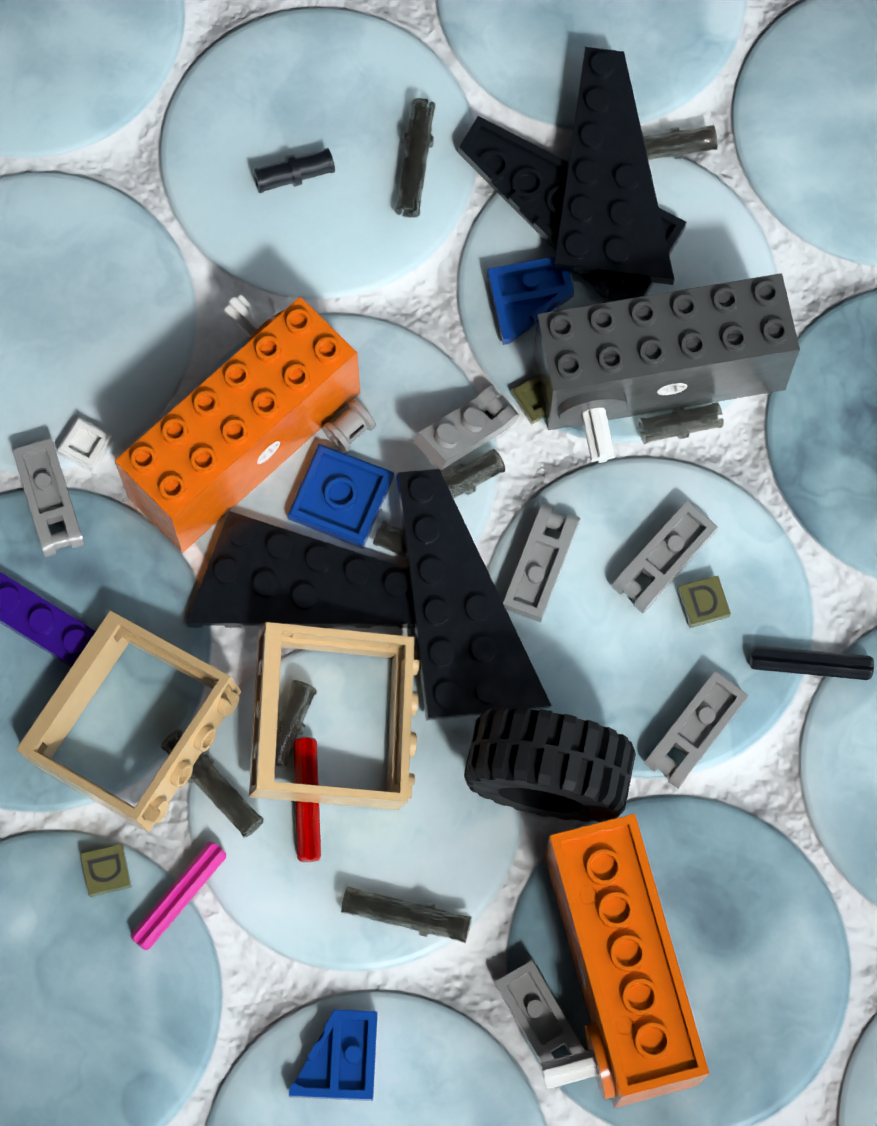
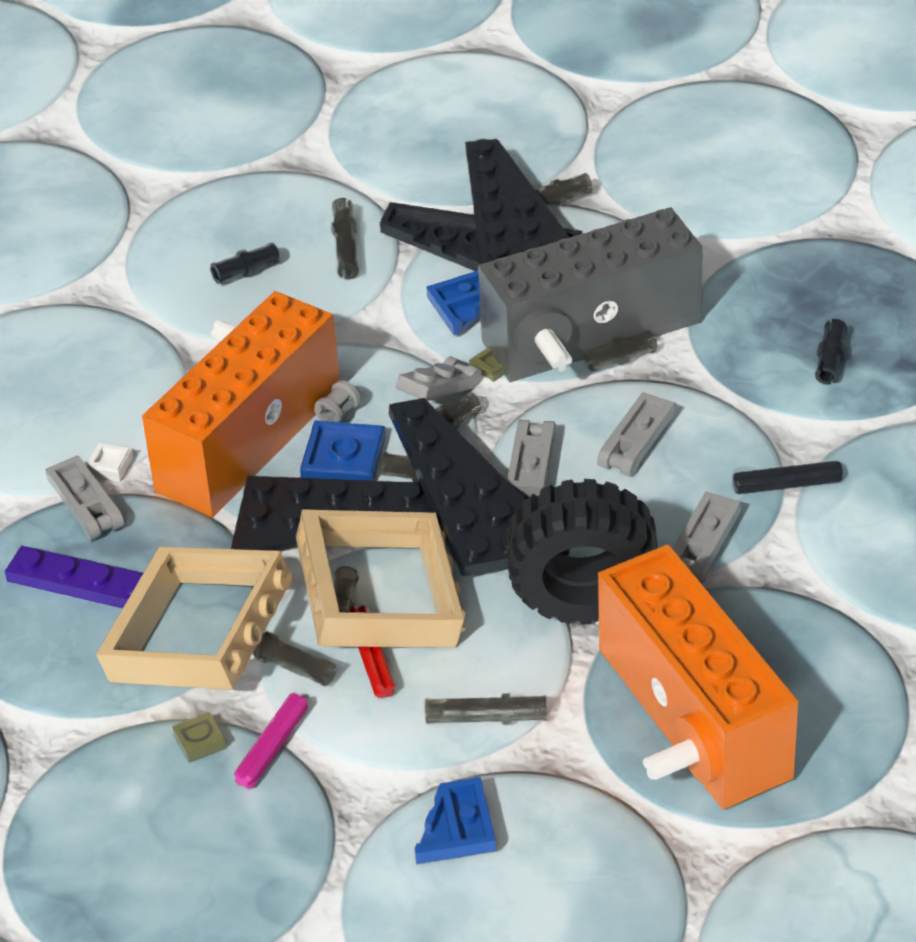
camera: 10 degrees left, 30 degrees down
(537, 1012) = (624, 752): light grey plate -> none
(704, 601) = (680, 457): olive tile -> none

